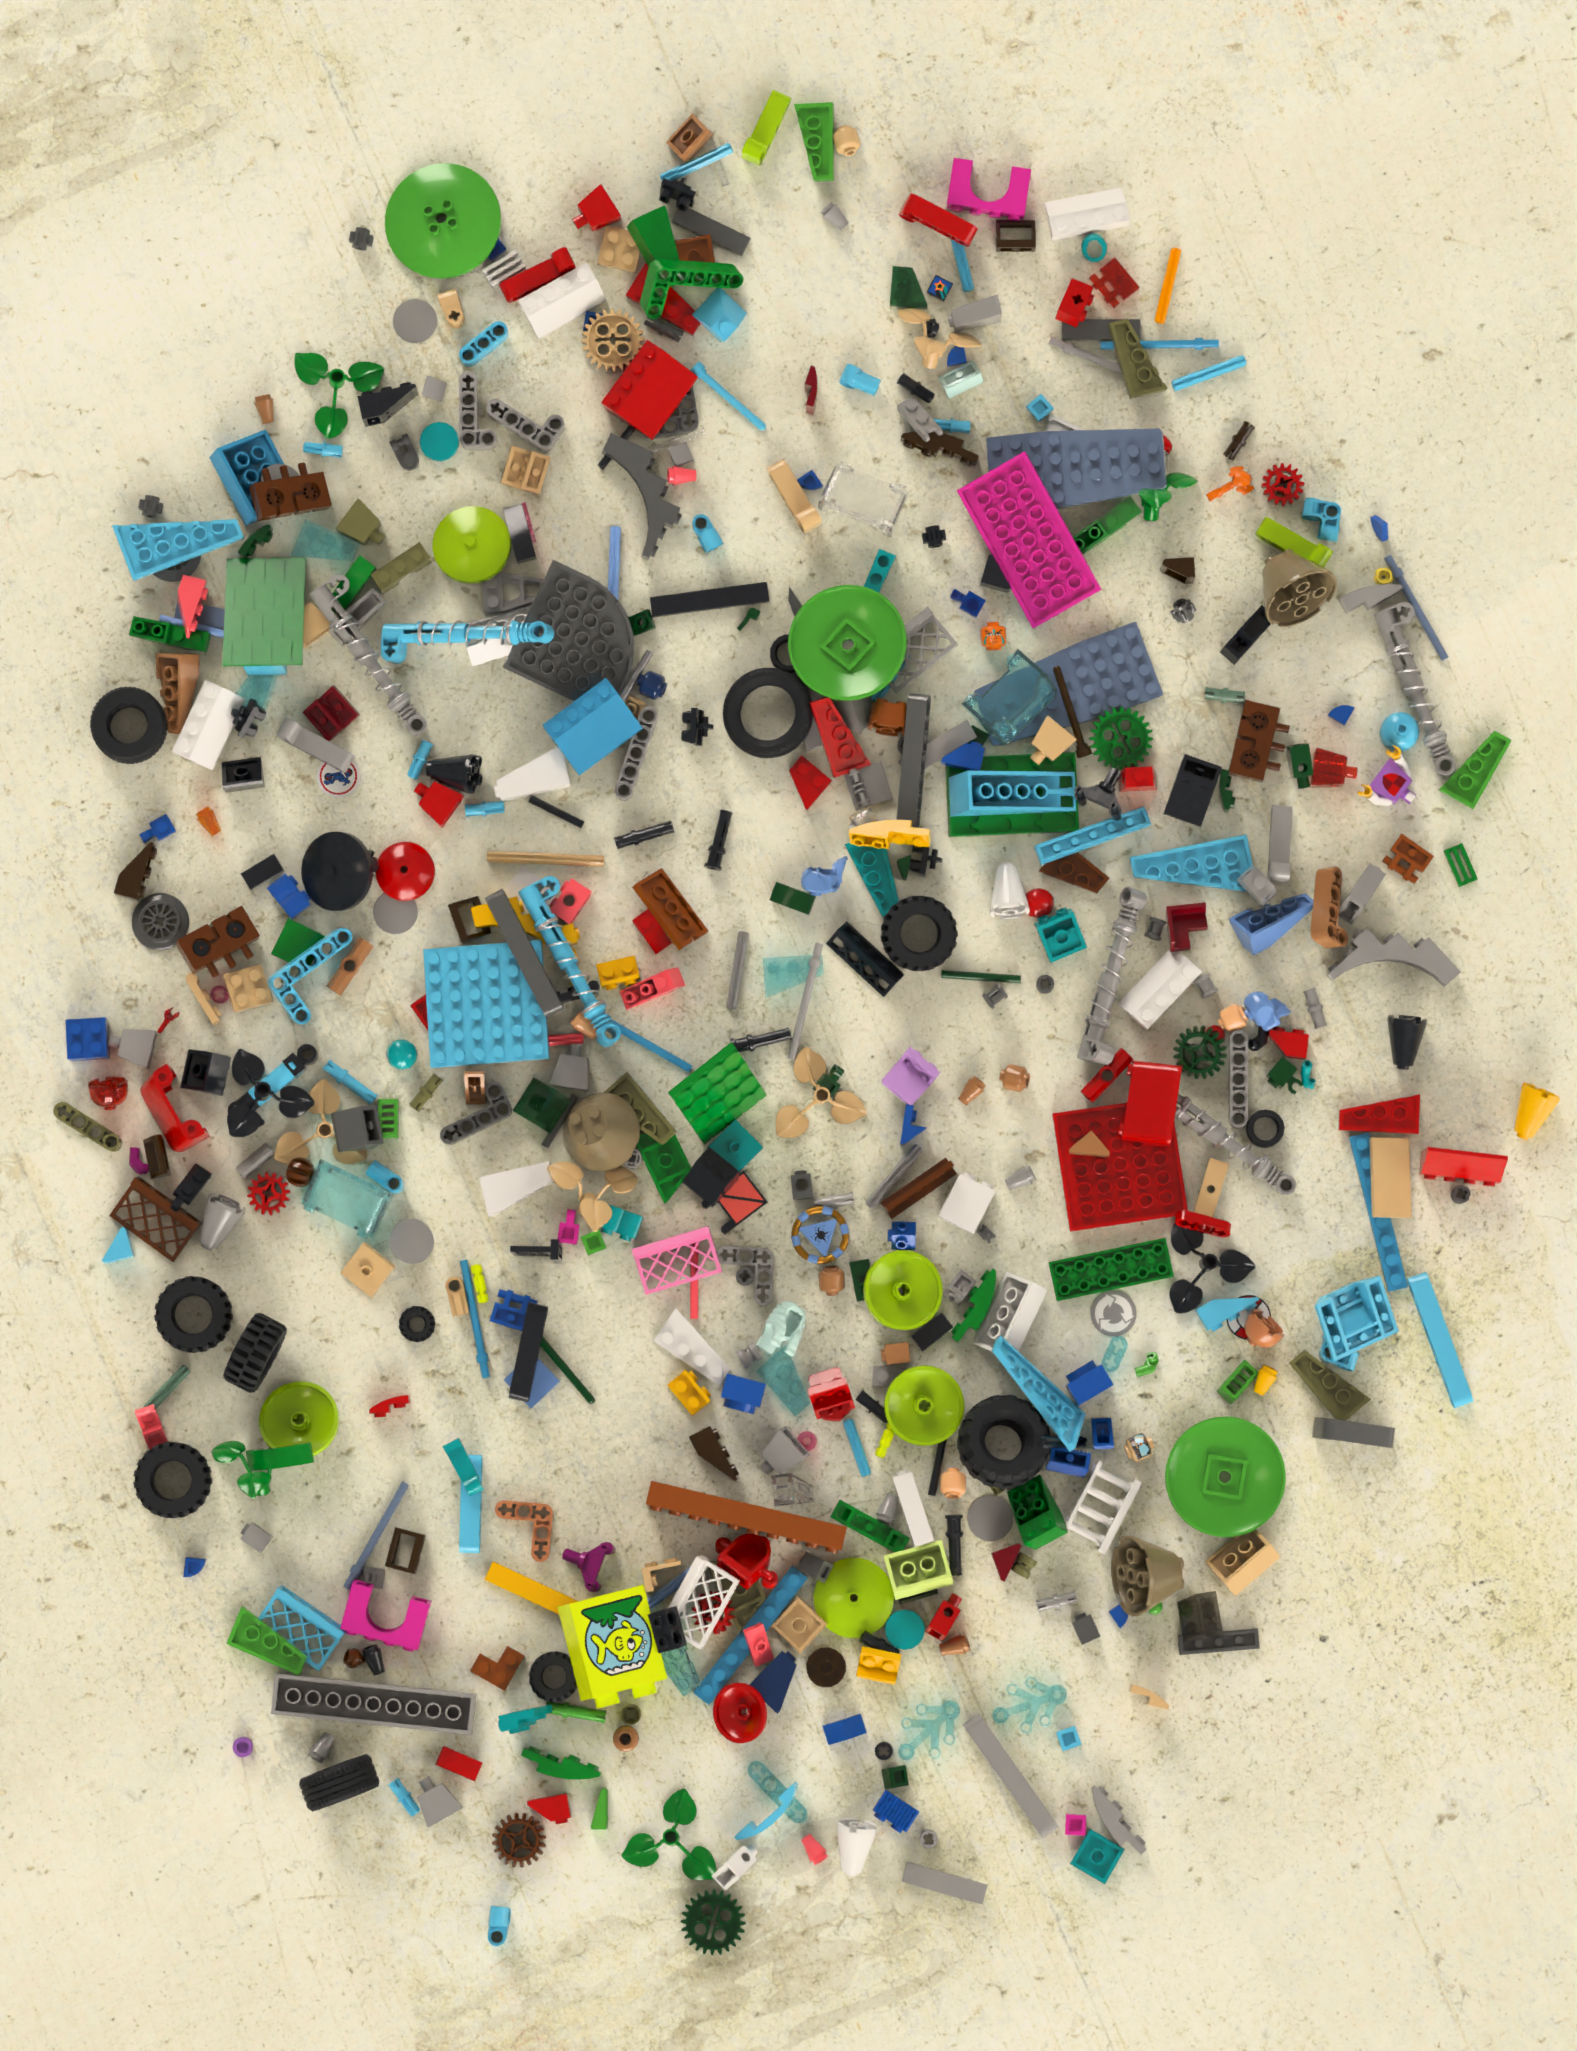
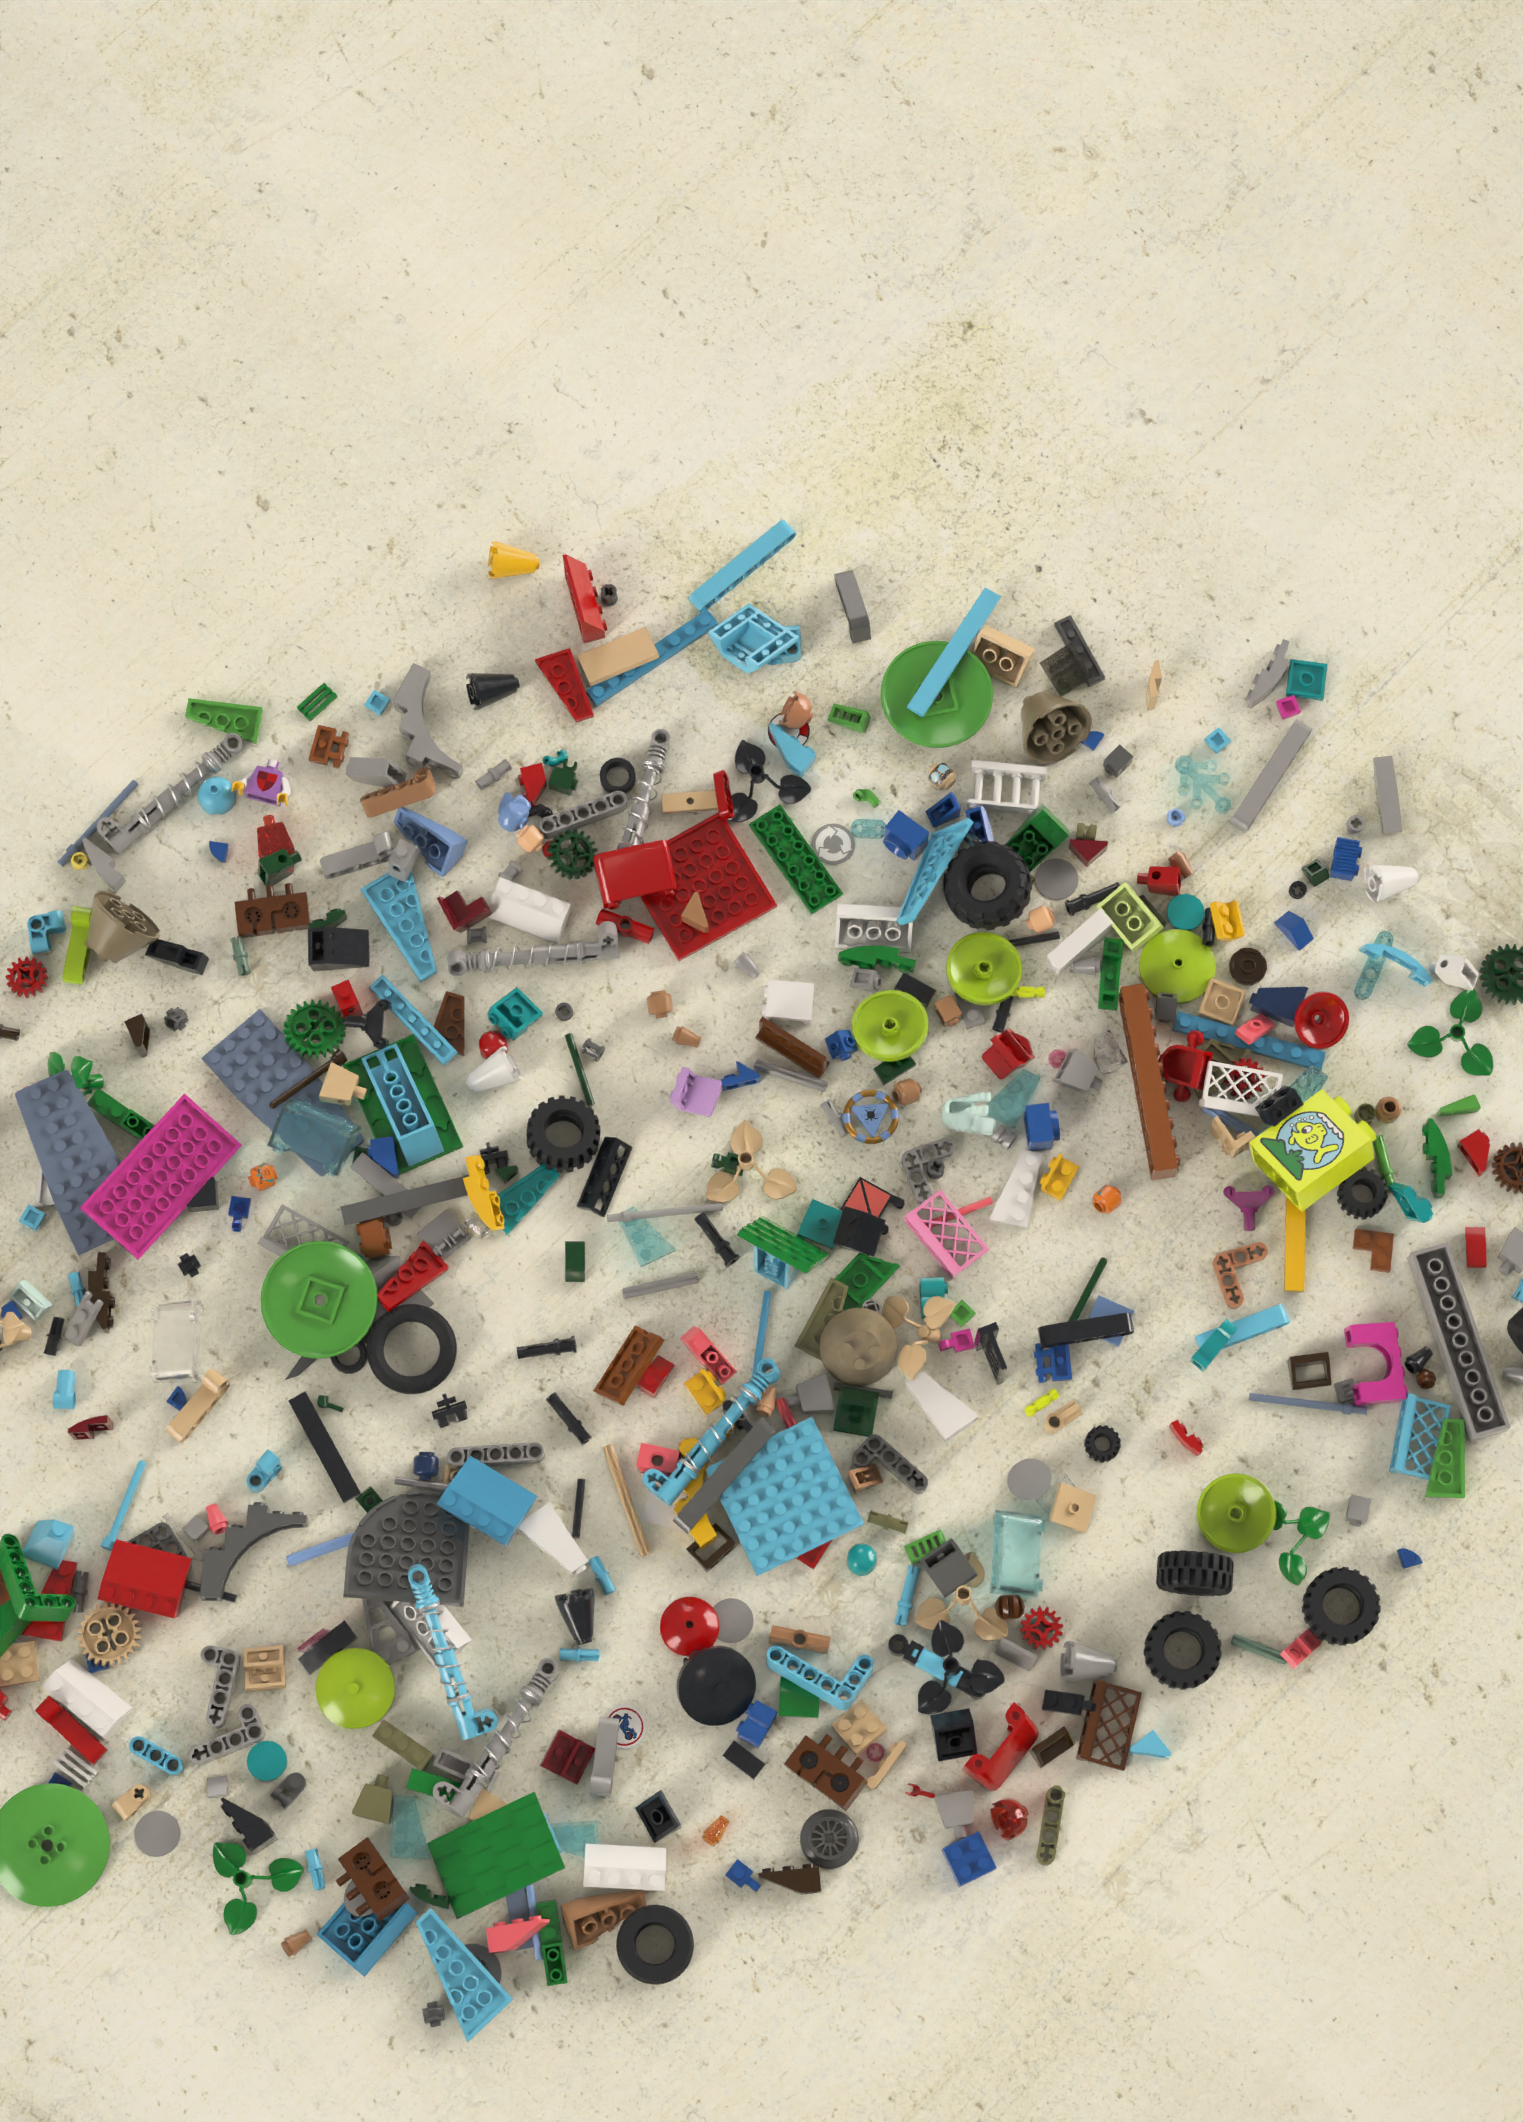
camera: 115 degrees left, 10 degrees down
(135, 1163) = (1065, 1765): magenta arm -> none
(244, 717) = (603, 1834): black hips -> none
(280, 1457) = (1279, 1513): green slope -> none
(361, 238) = (95, 1916): dark grey gear -> none
(384, 1176) = (981, 1528): medium azure piece -> none
(438, 801) = (612, 1620): red torso -> none
(482, 1357) = (1107, 1373): dark azure bar -> none
(648, 1428) = (1107, 1199): none -> orange head
(709, 1449) = (1101, 1140): dark brown slope -> none
(801, 1194) = (836, 1143): dark grey brick -> none
(808, 781) = (460, 1290): red wing -> none
(814, 1850) = (1409, 914): coral cone -> none
(823, 880) = (548, 1238): medium blue head -> none
(857, 1448) = (1044, 1014): medium azure axle -> none
(879, 570) = (239, 1301): teal leg -> none
(931, 1728) = (1260, 857): clear light blue plant -> none
(986, 1234) = (809, 975): dark grey bush -> none
(1000, 1662) = (1180, 817): none -> light blue plate
(1240, 479) = (36, 1012): orange piece -> none
(1261, 1511) = (953, 652): none -> medium azure tile
(1265, 1379) = (837, 695): yellow cone -> none
(1333, 1391) = (823, 637): olive wing -> none
(1380, 527) = (35, 880): blue tile -> none
(1435, 923) = (377, 702): none -> medium azure plate

